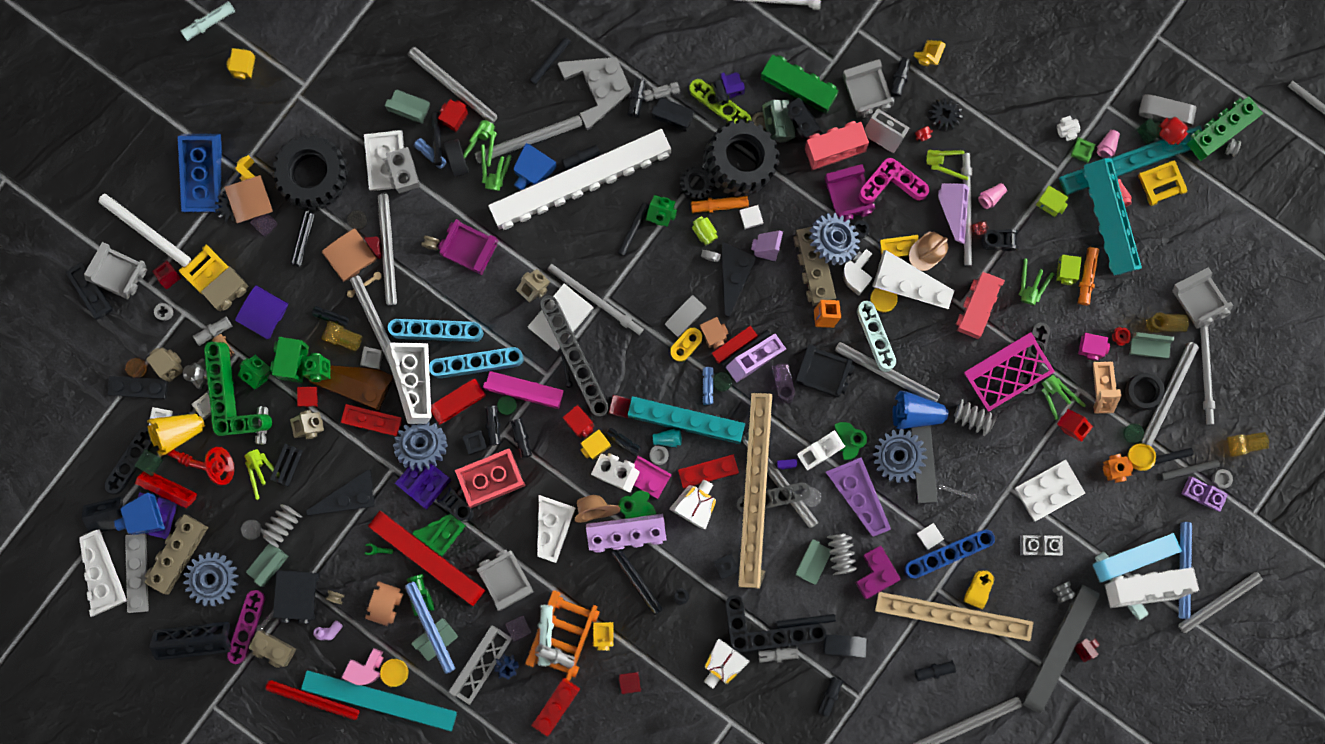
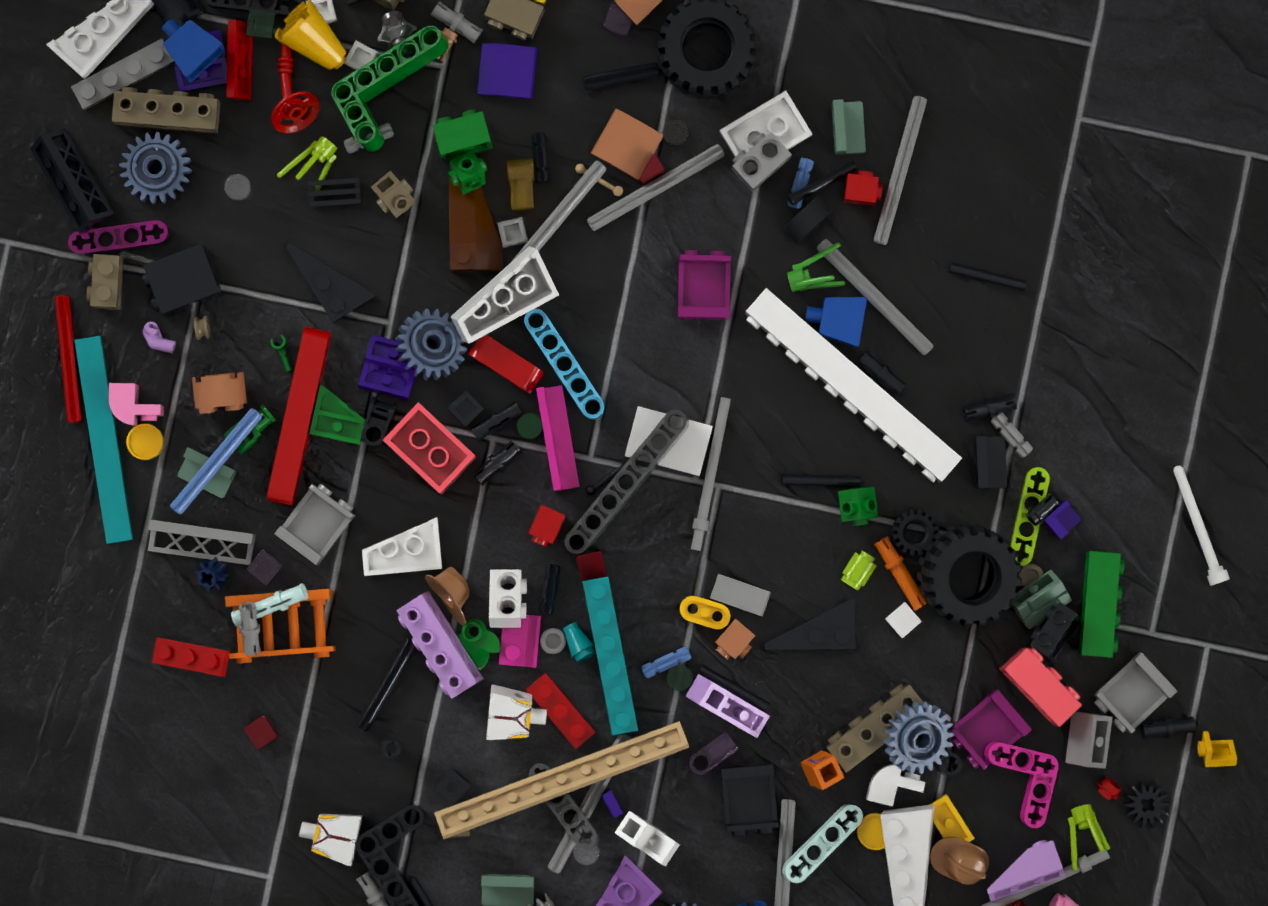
camera: 60 degrees right, 5 degrees up
(254, 371) = (429, 98): green brick -> none
(267, 564) = (204, 226): sand green panel -> none
(280, 524) = (257, 220): light grey piece -> none
(307, 396) = (429, 177): red tile -> none
(371, 420) = (435, 269): red plate -> none
(427, 325) = (581, 282): medium azure beam -> none
(430, 243) = (687, 237): dark tan bush -> none
(483, 132) = (857, 237): bright green plant -> none
(533, 285) = (691, 390): dark tan brick -> none
(595, 445) = (528, 557): yellow brick -> none
(603, 635) = (302, 674): yellow bracket -> none
(605, 82) = (991, 359): light grey wing -> none
(711, 256) = (829, 591): light grey tile -> none
(734, 344) = (732, 672): red piece -> none
(767, 245) = (873, 657): lavender slope -> none
(846, 433) = (682, 860): green plate -> none

